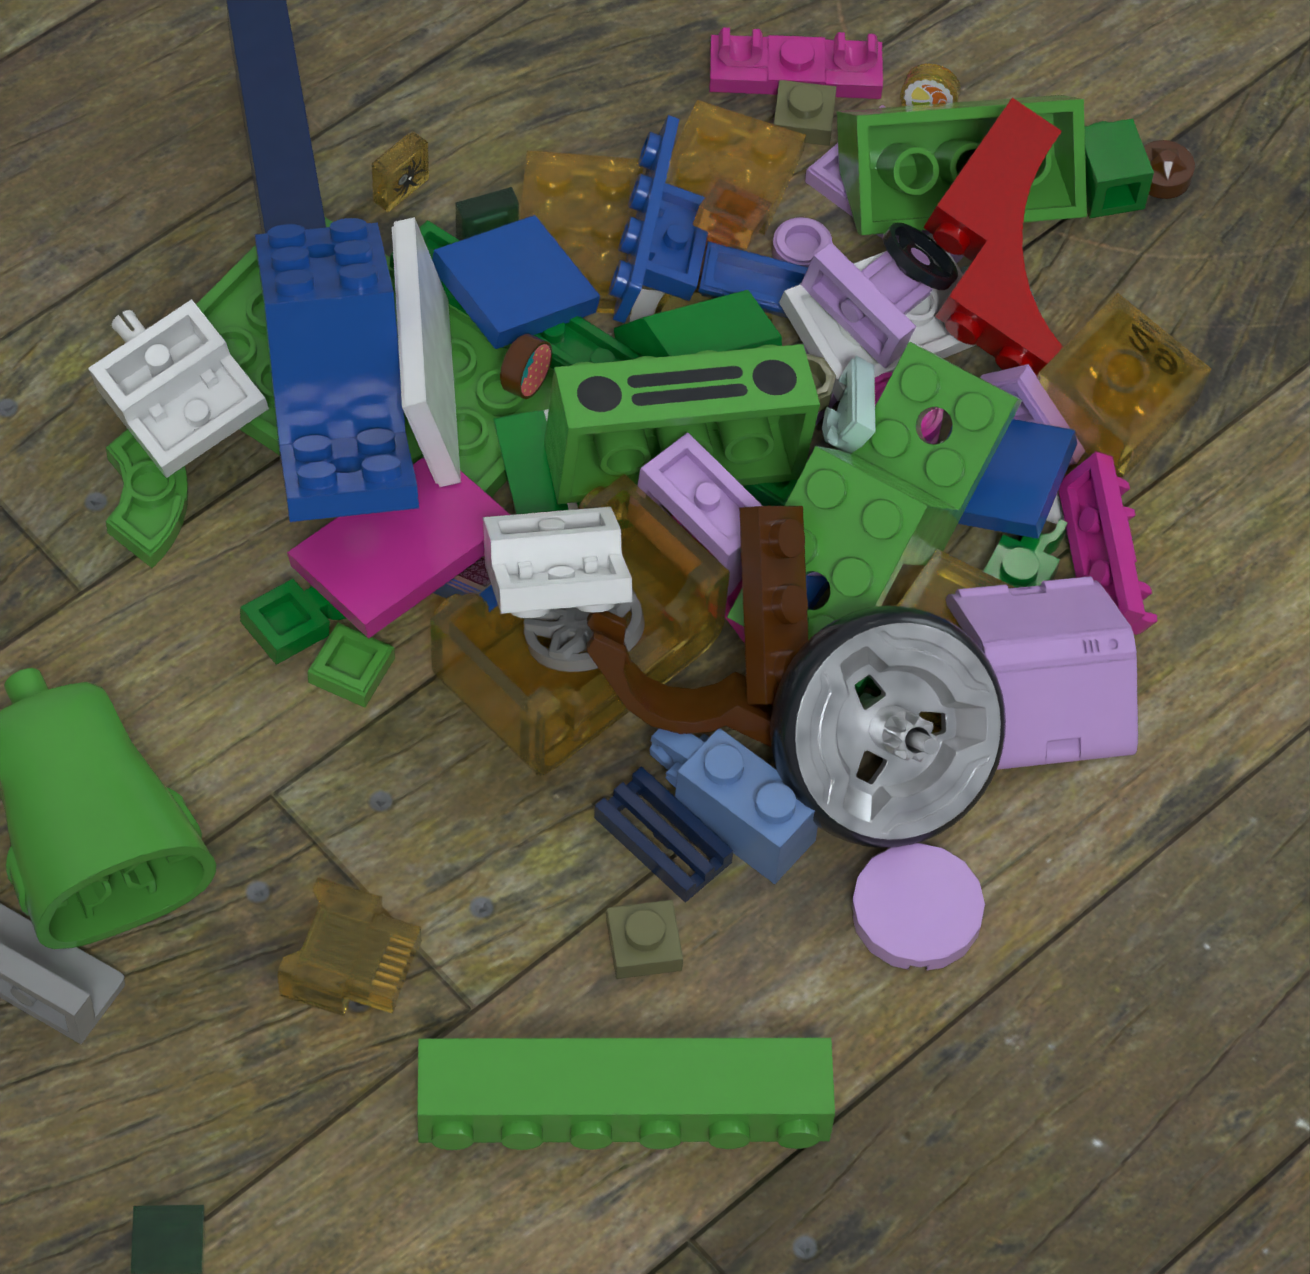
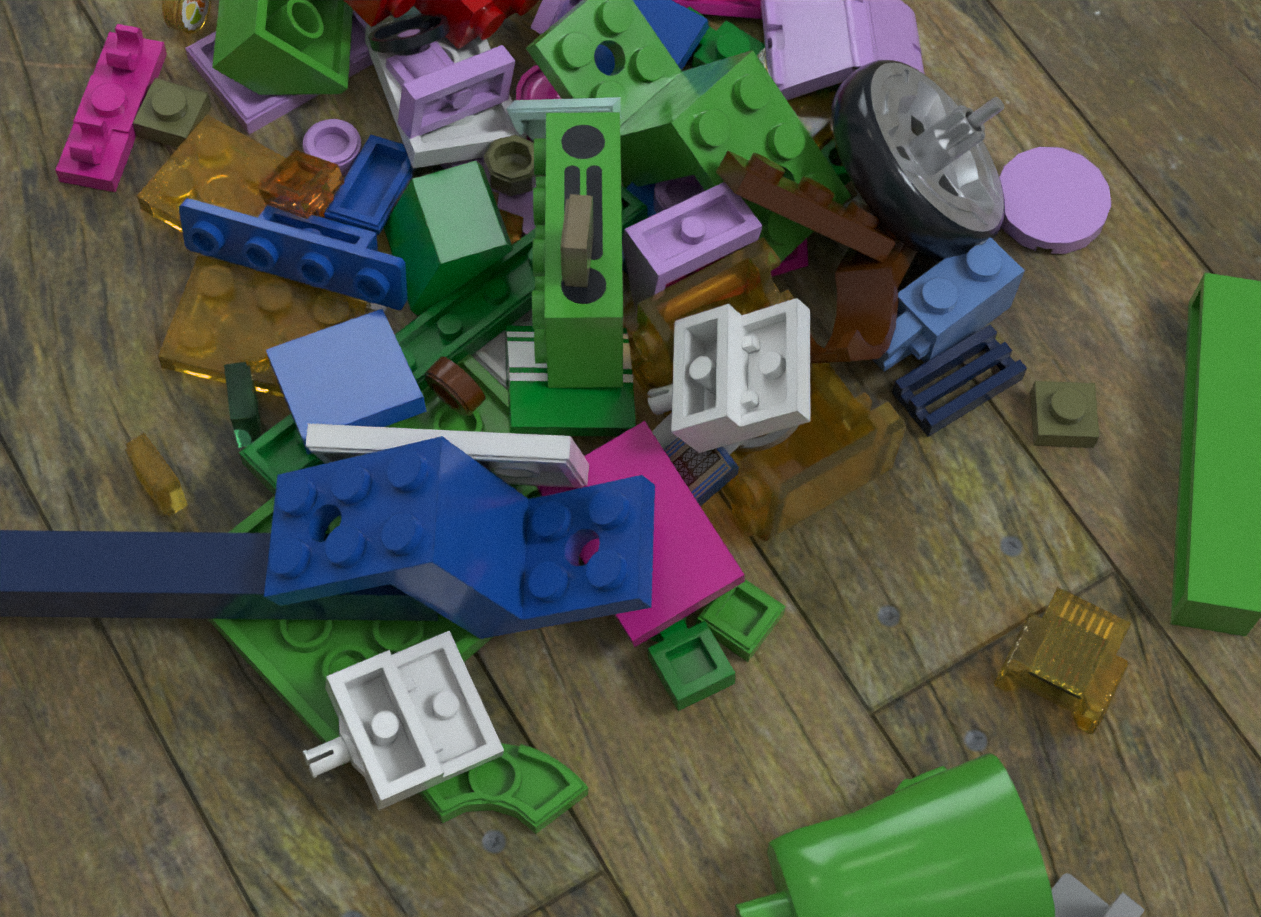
camera: 80 degrees left, 5 degrees up
(631, 367) = (577, 240): none -> dark tan tile

